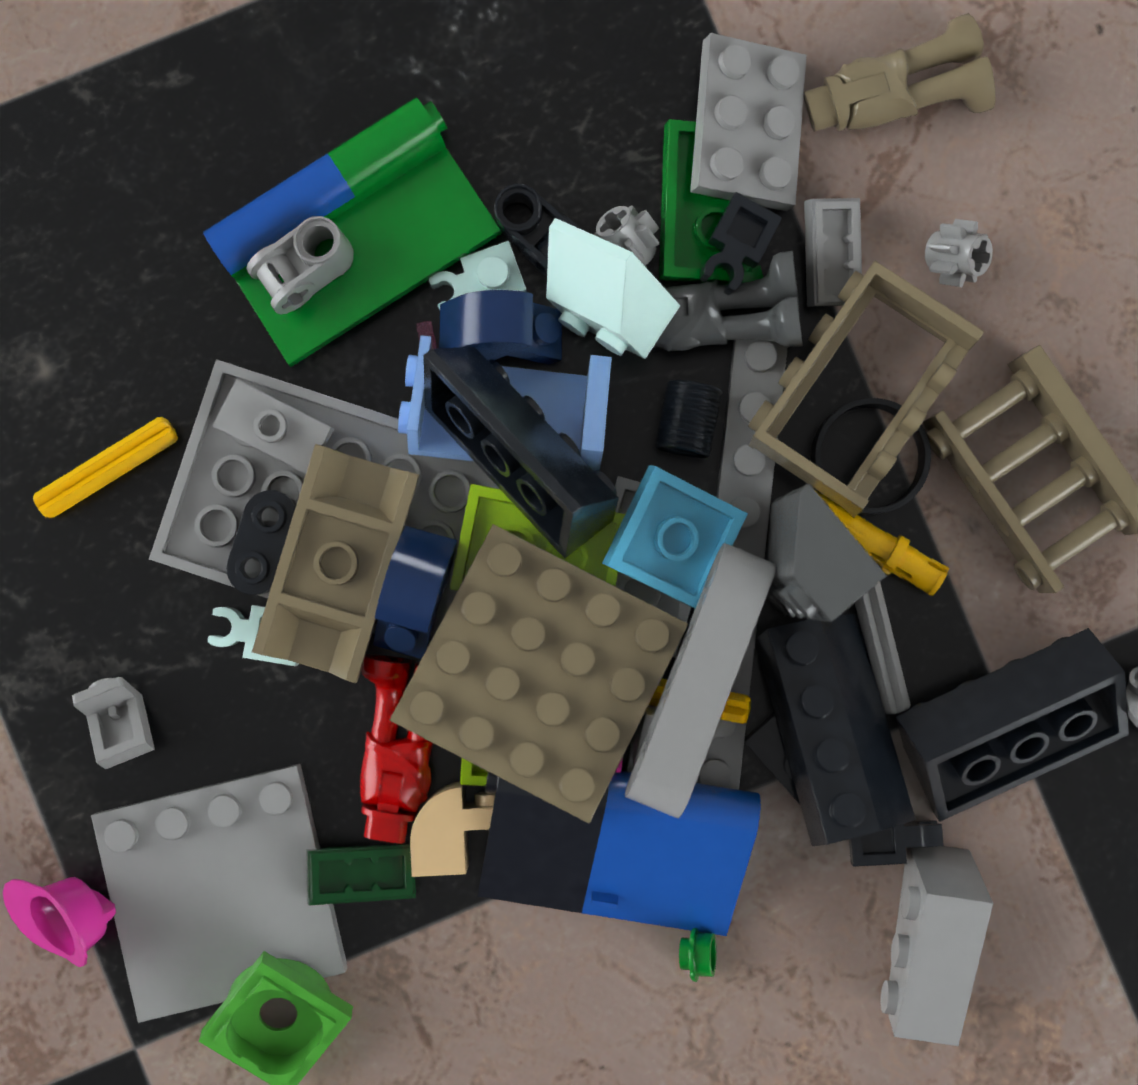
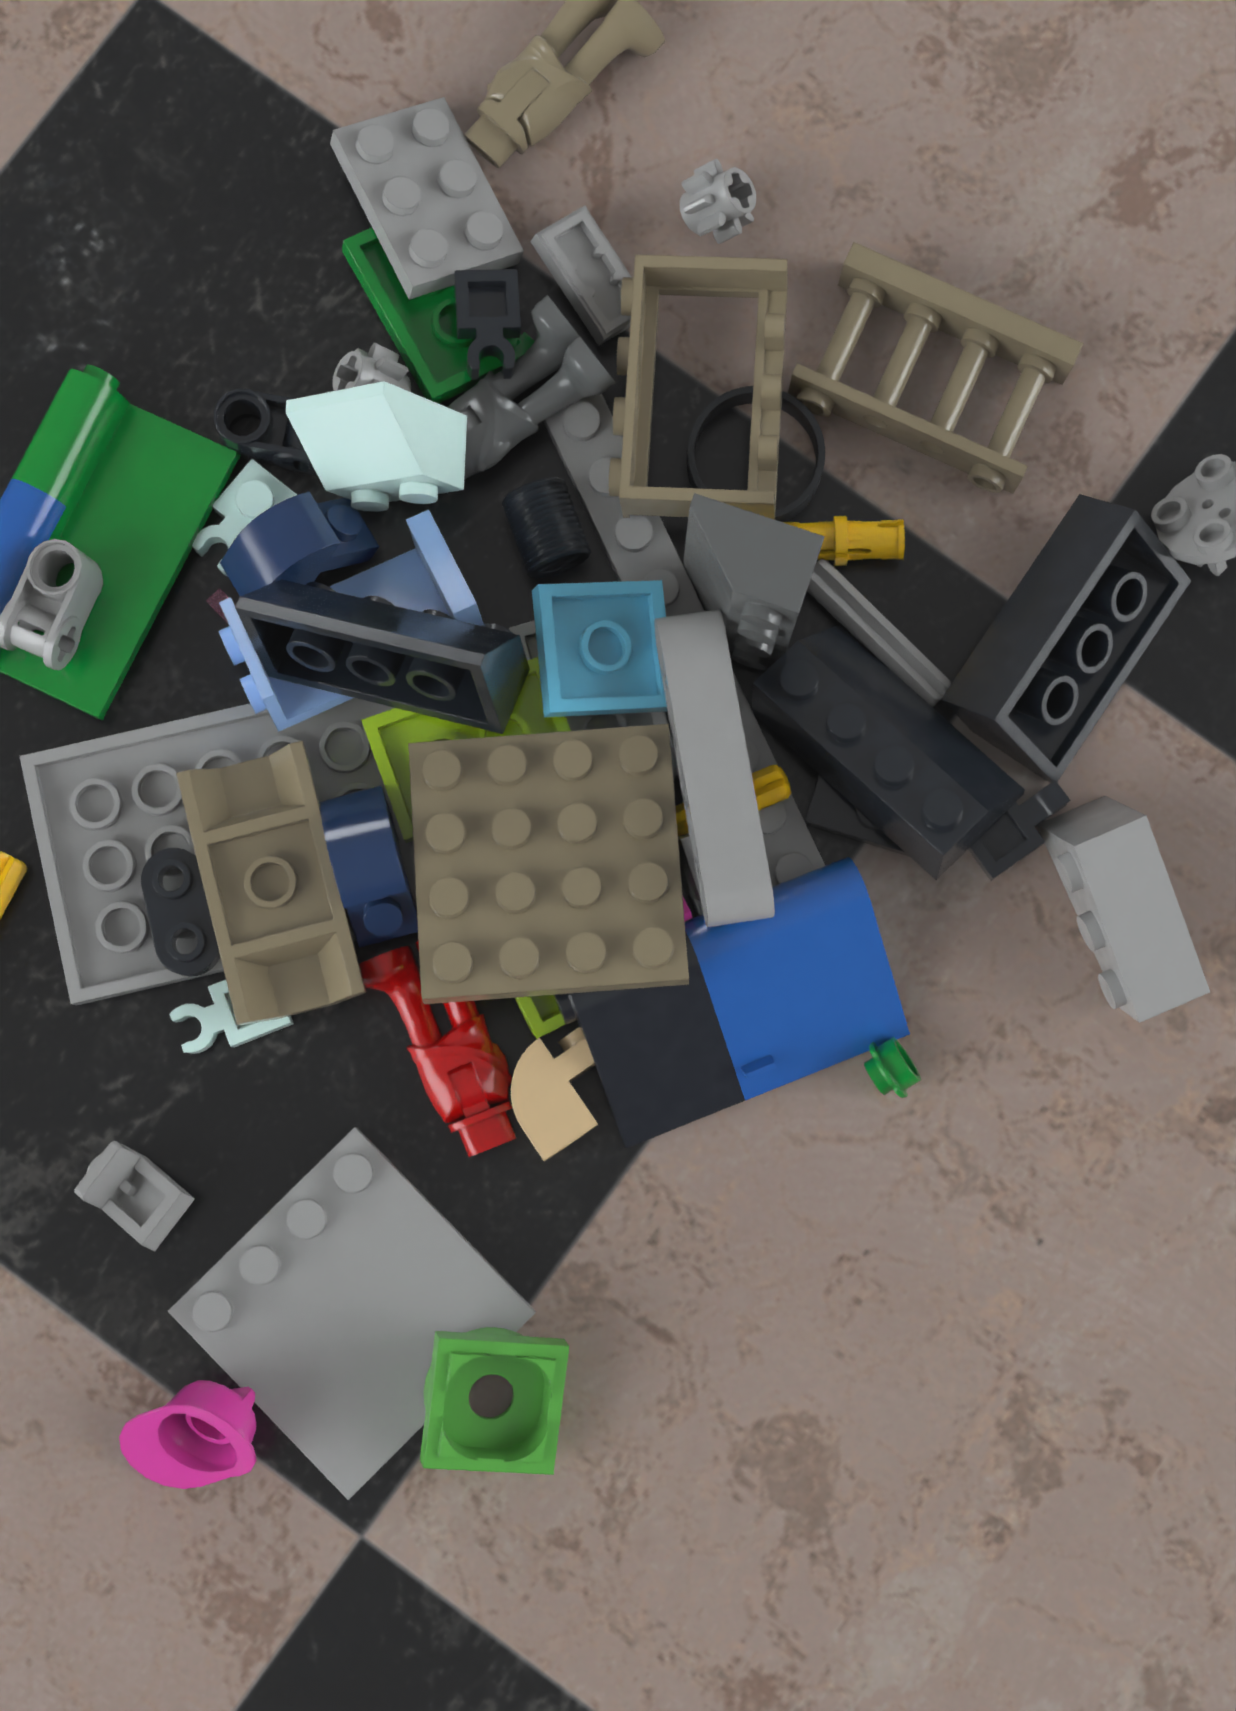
camera: 30 degrees left, 5 degrees down
(271, 426) = (119, 788): light grey plate -> none
(359, 874) = (489, 1198): dark green plate -> none

